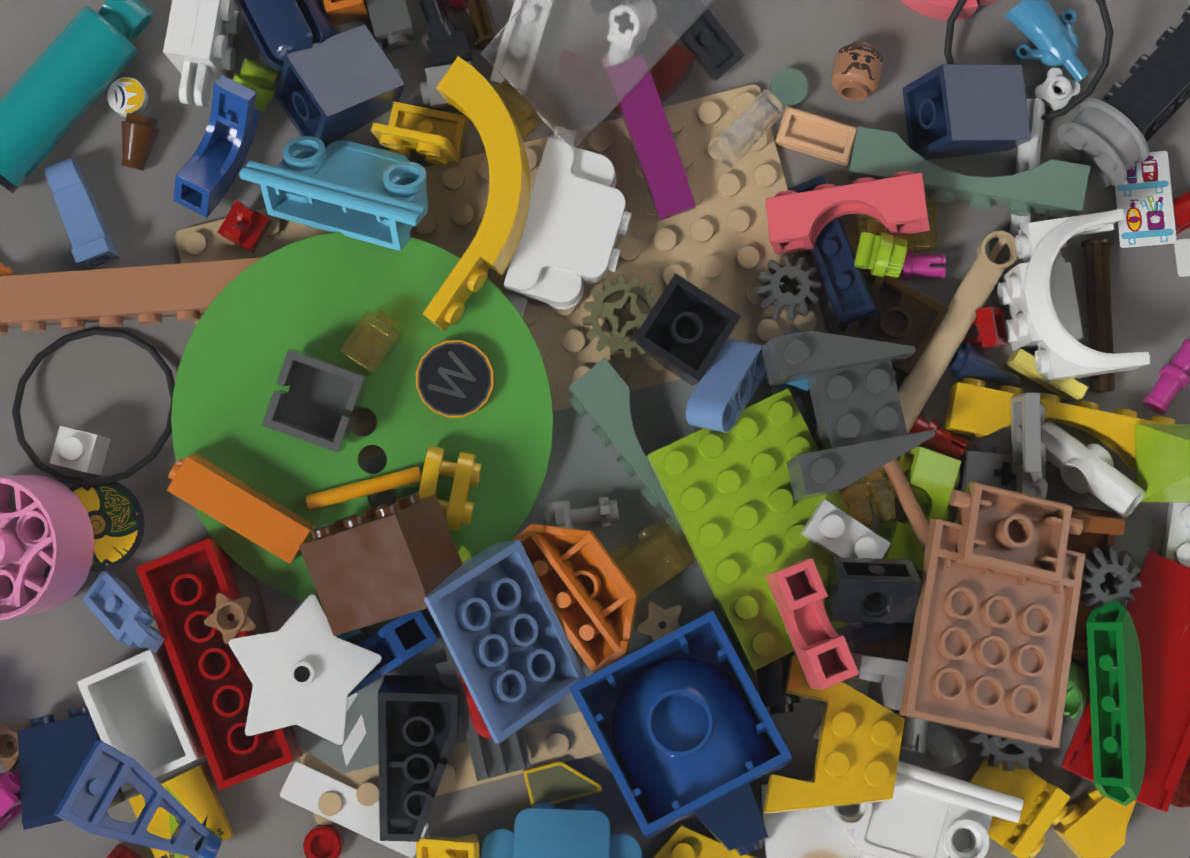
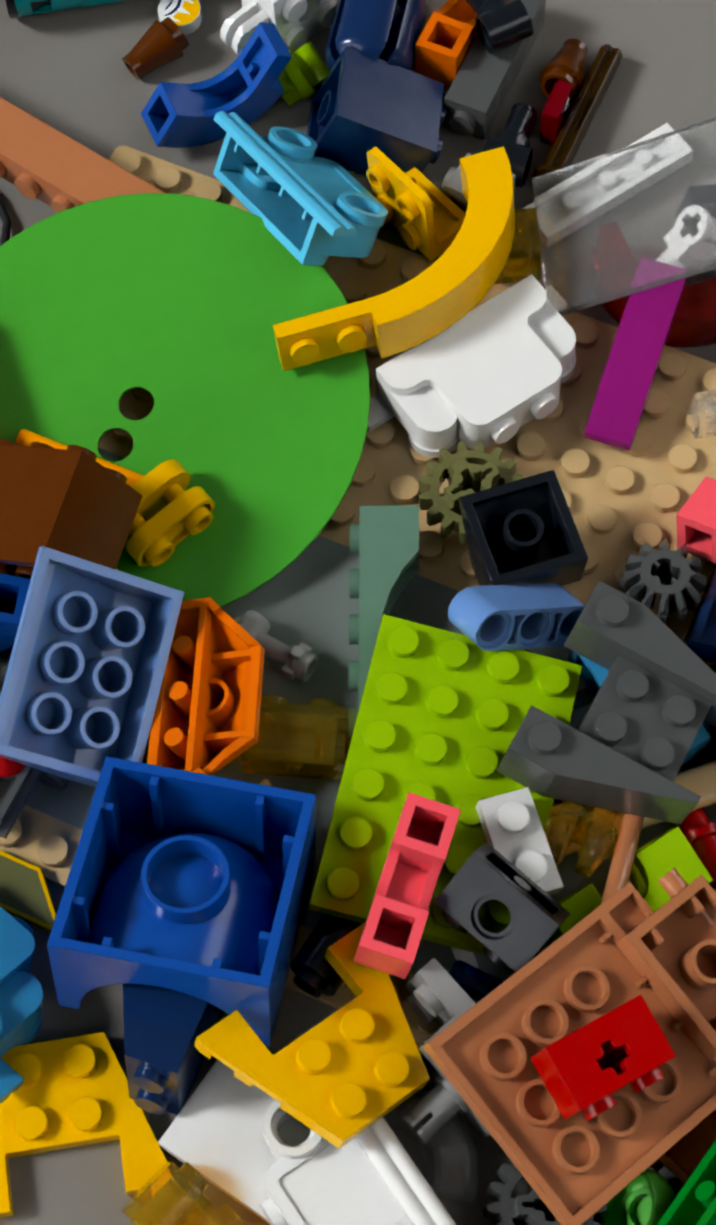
camera: 40 degrees right, 20 degrees down
(80, 215) = (51, 68): medium blue leg -> none
(244, 226) = (184, 173): red tile -> none
(317, 400) = (114, 345): dark grey piece -> none
(372, 340) = (207, 327): clear yellow brick -> none
(454, 378) = (256, 421): black tile -> none
(1006, 622) = (625, 1034): none -> red brick

